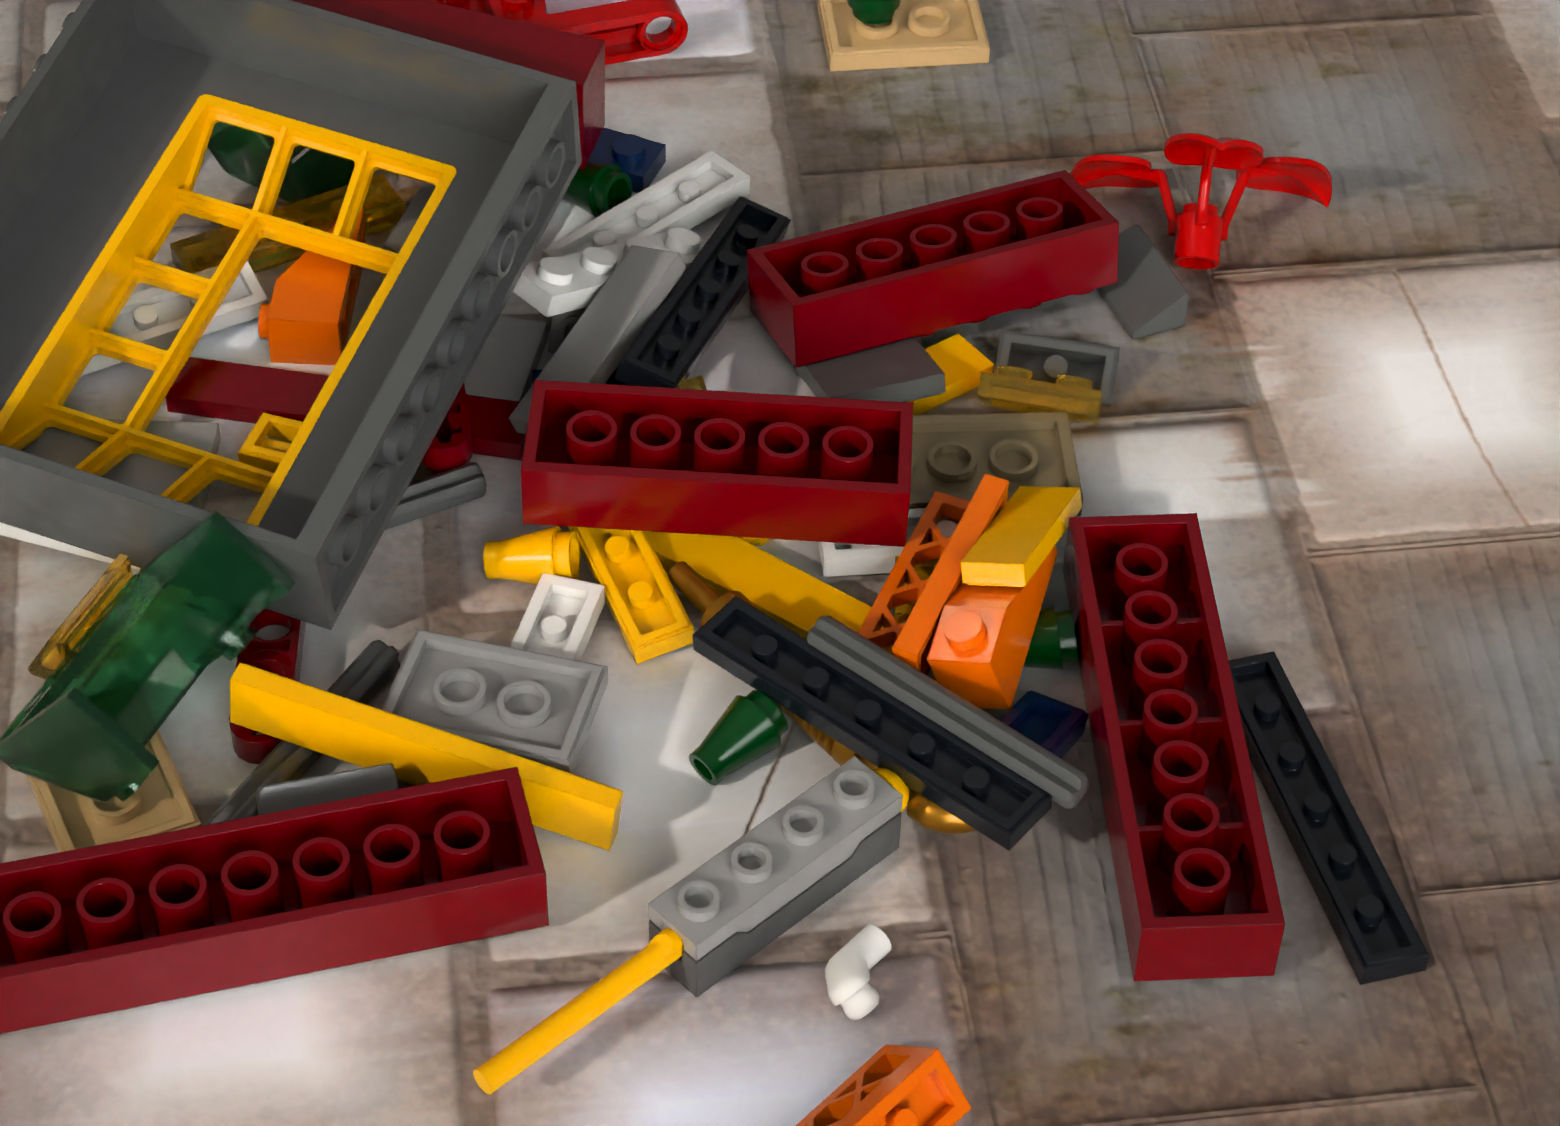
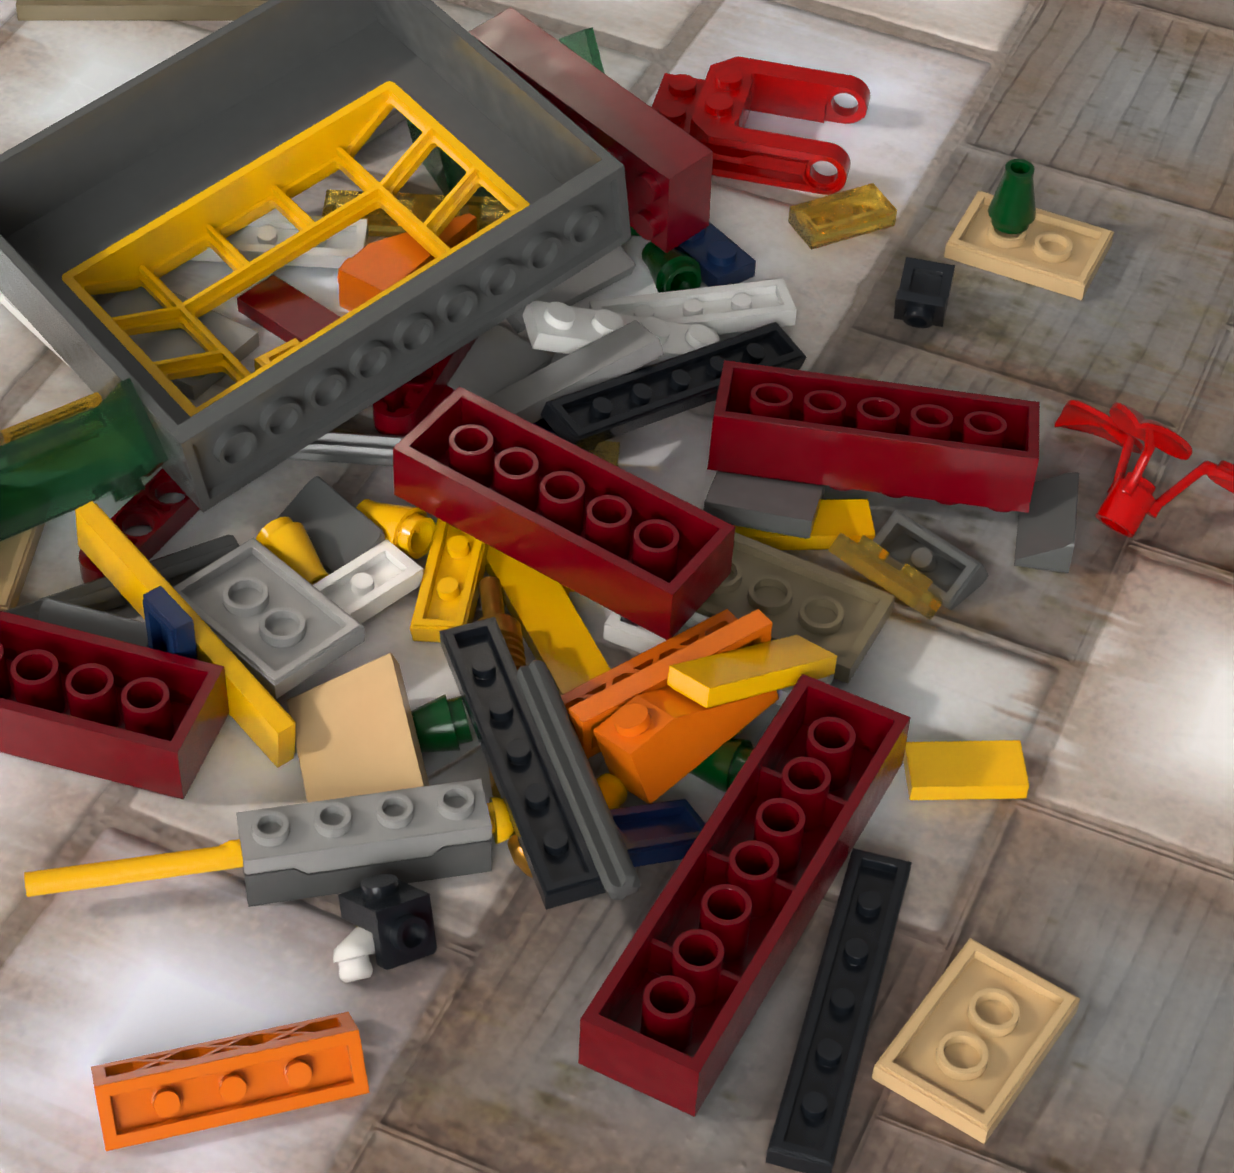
camera: 30 degrees right, 0 degrees up
(428, 751) = (168, 624): none -> dark blue tile
(454, 619) = (293, 546): none -> yellow cone
(469, 589) = (332, 524): none -> dark grey slope
(686, 779) = (358, 734): none -> tan tile
(711, 67) = (842, 216): none -> clear yellow plate
(852, 112) = (923, 293): none -> black bracket
(859, 926) = (396, 917): none -> black bracket
(1255, 544) = (965, 770): none -> yellow tile
(1449, 783) = (976, 1040): none -> tan tile

